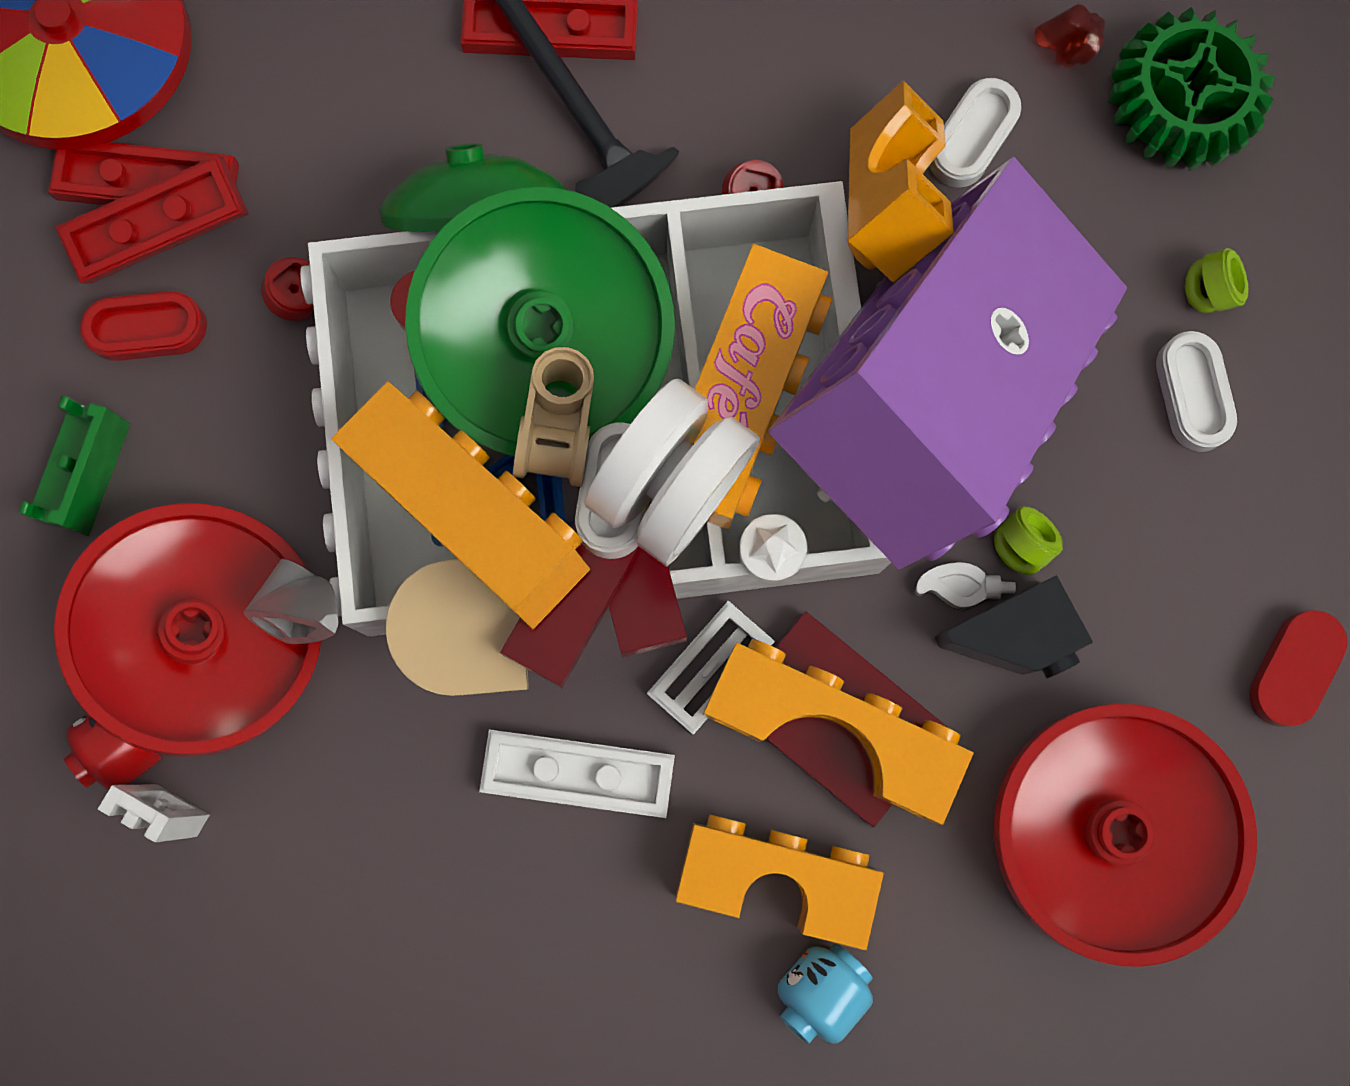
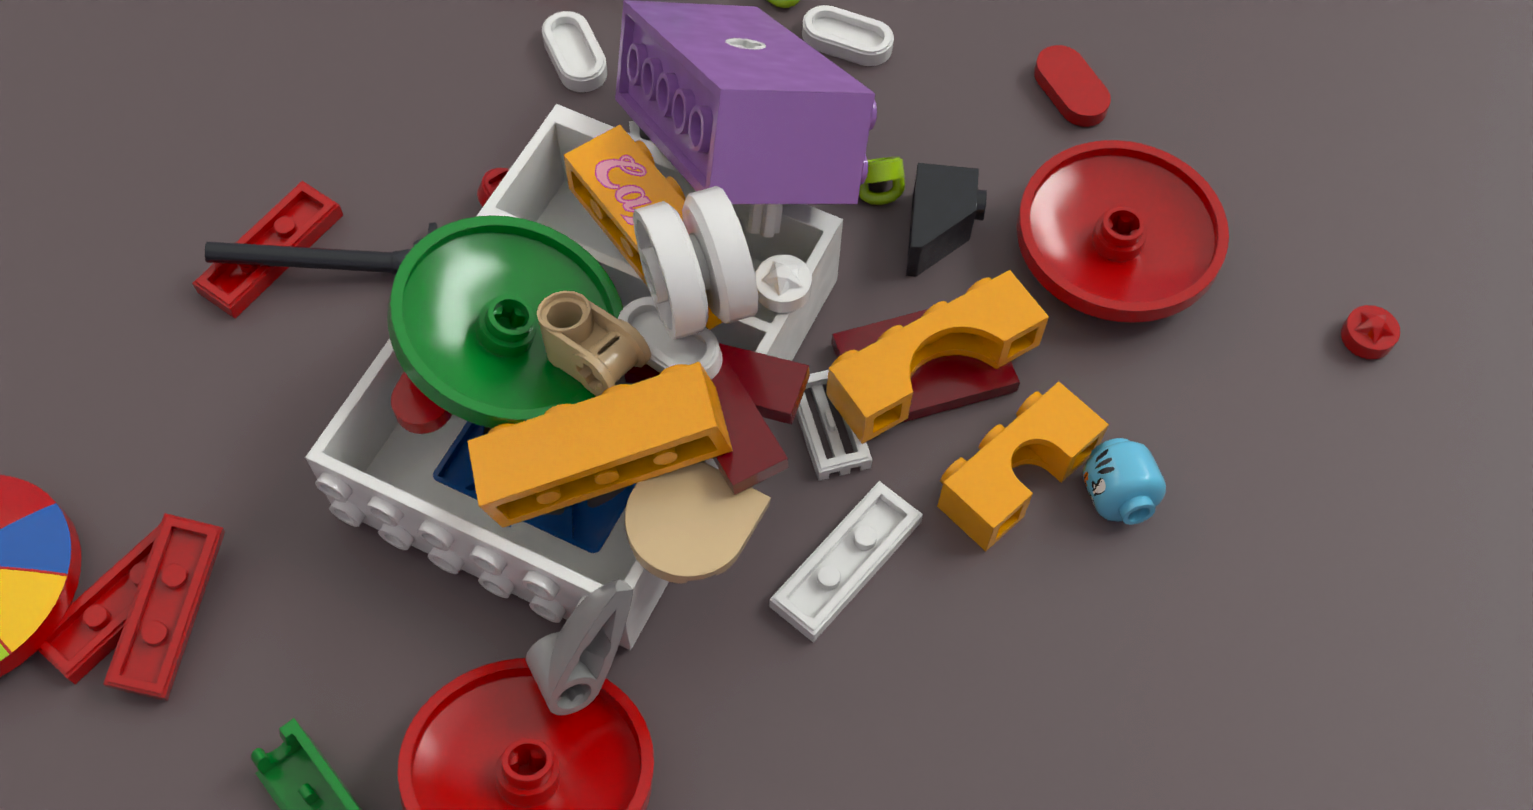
camera: 55 degrees left, 20 degrees down
(143, 326) = (241, 673): red tile -> none
(283, 290) = (312, 535): red tile -> none
(449, 186) = (347, 351): green dish -> none
(892, 206) = (598, 81): light orange arch -> none
(962, 585) = (881, 235): white piece -> none

